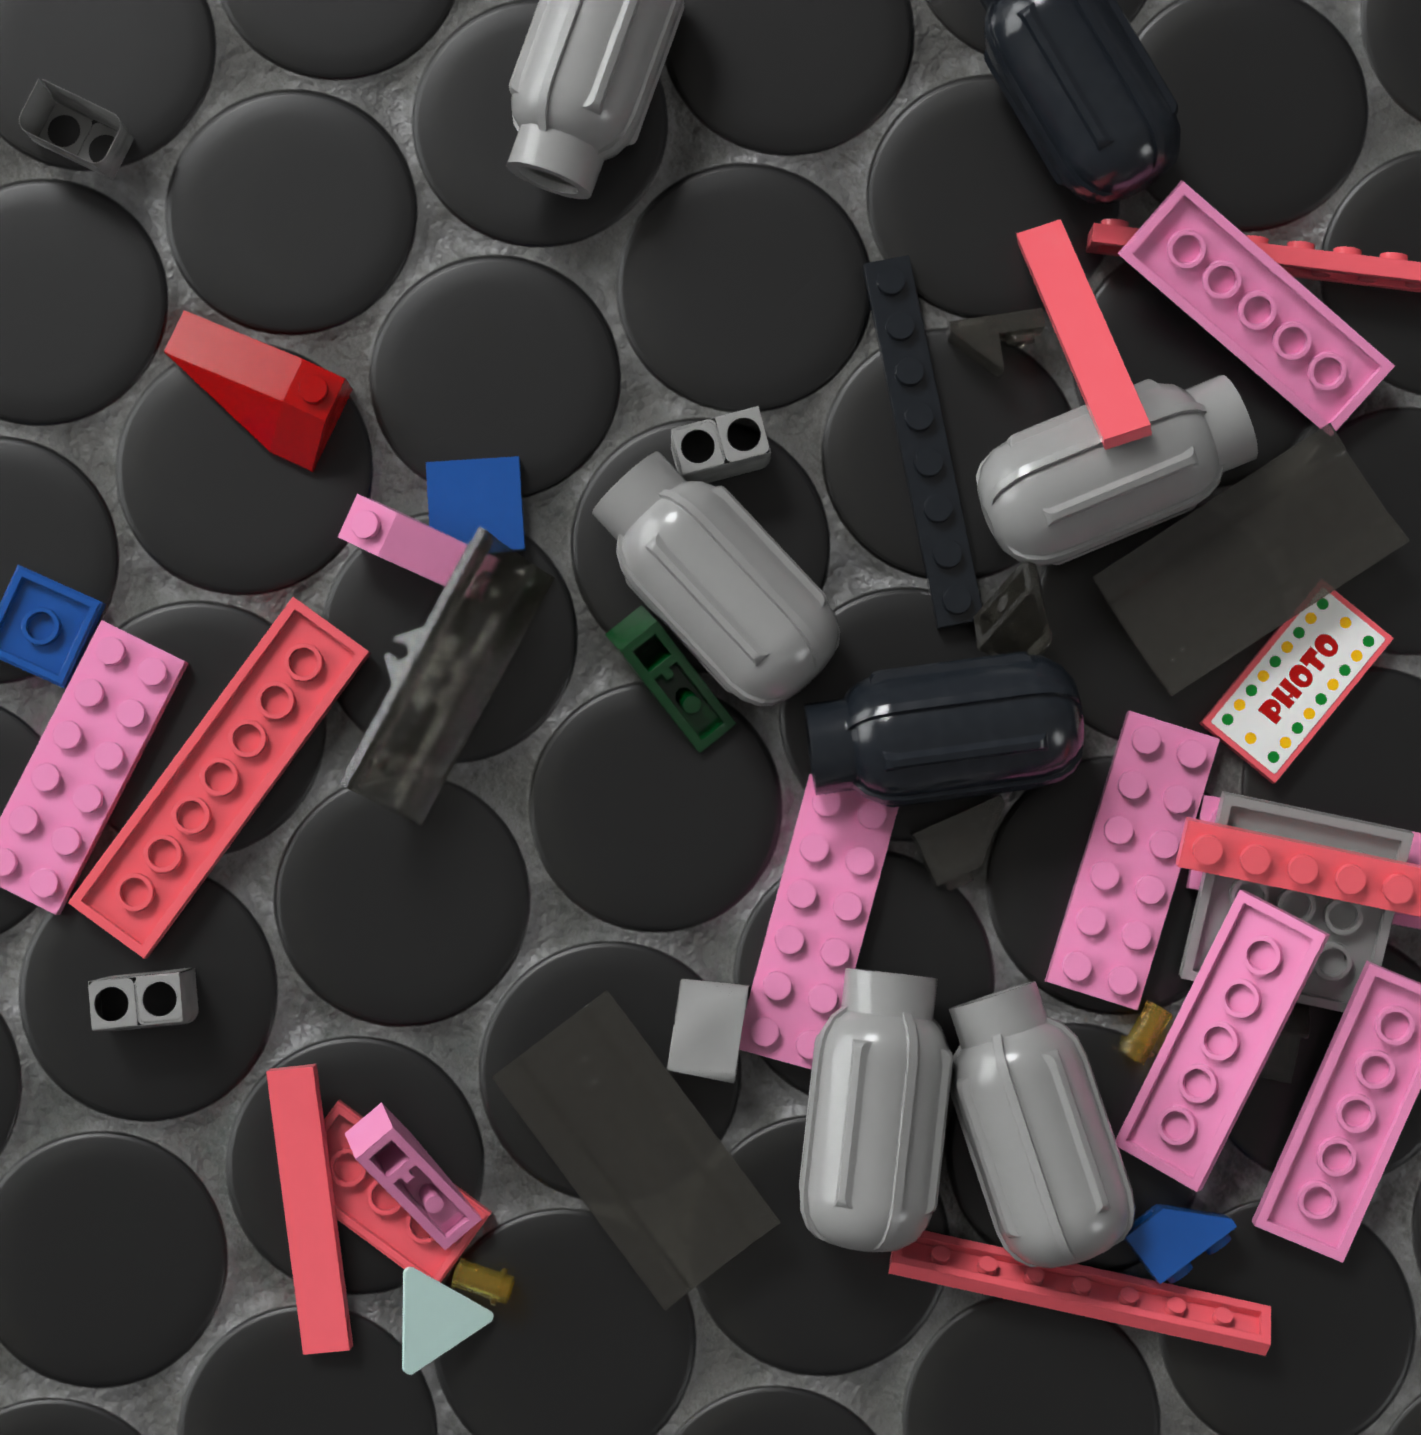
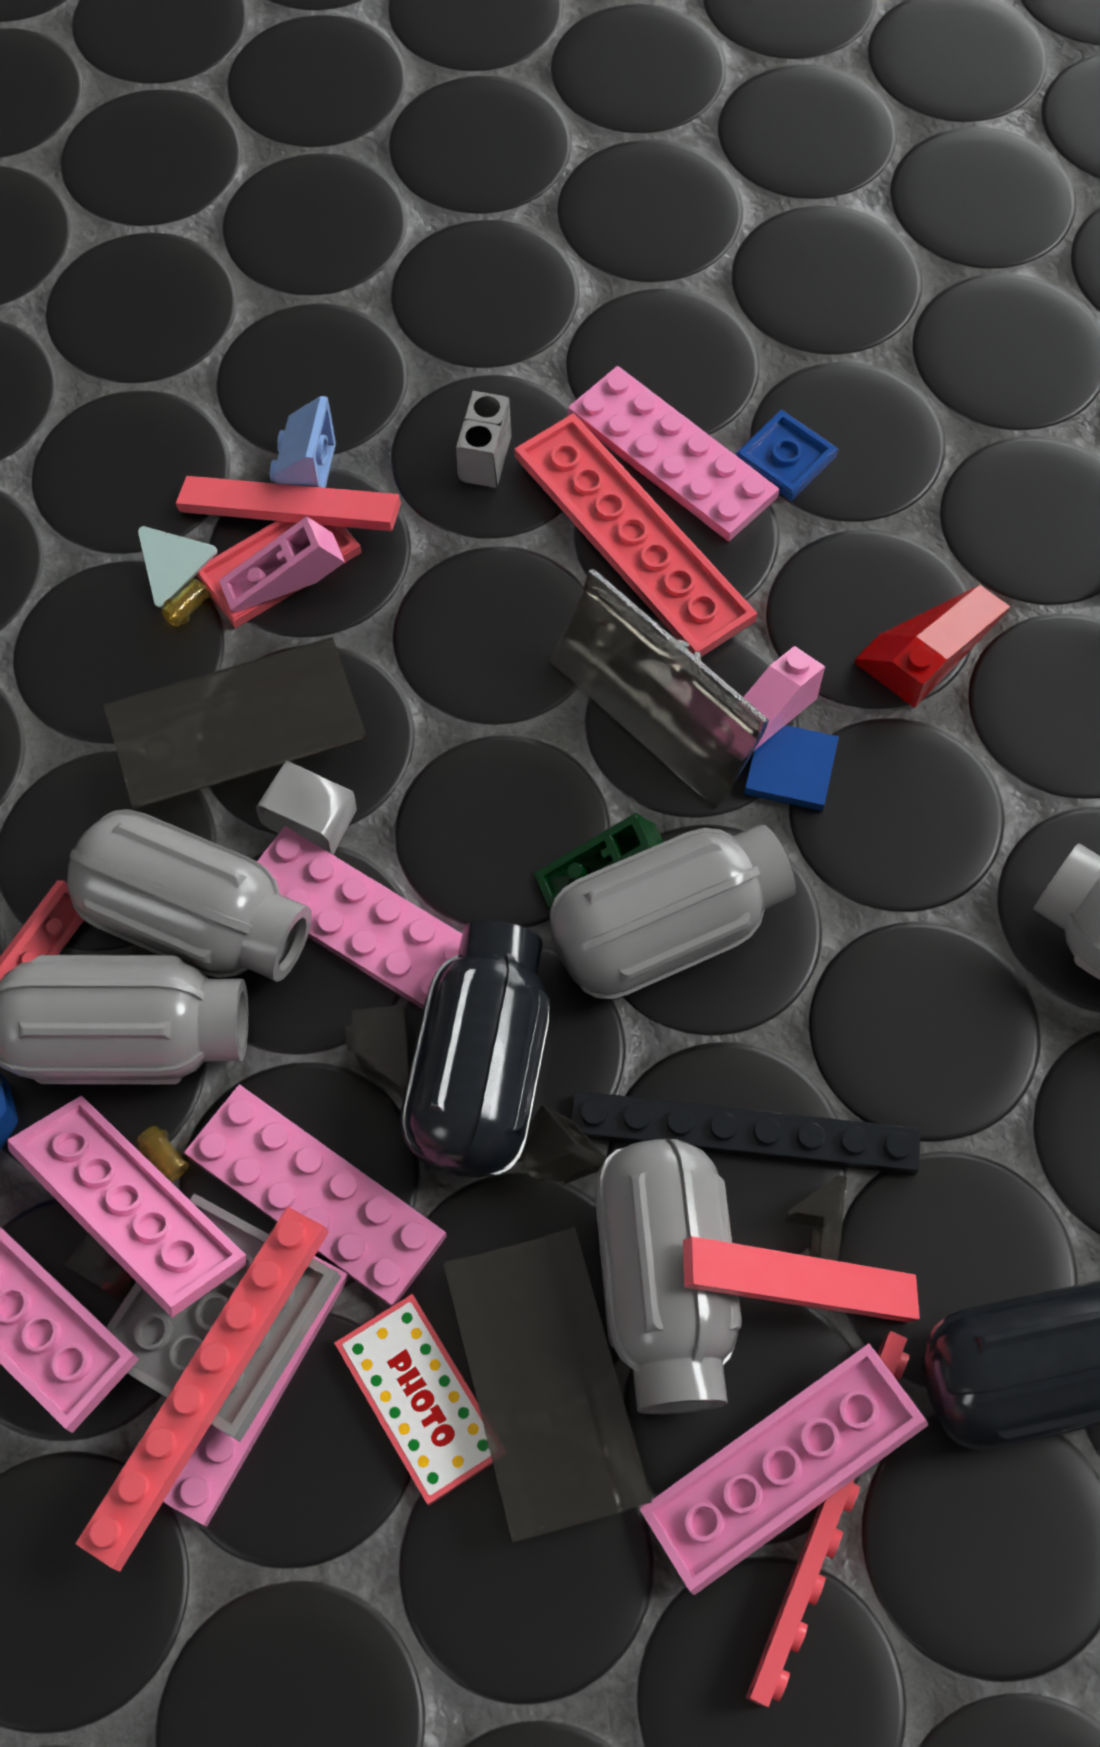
camera: 105 degrees right, 20 degrees down
(232, 1216) = (305, 446): none -> light blue slope
(714, 468) = (785, 991): light grey piece -> none

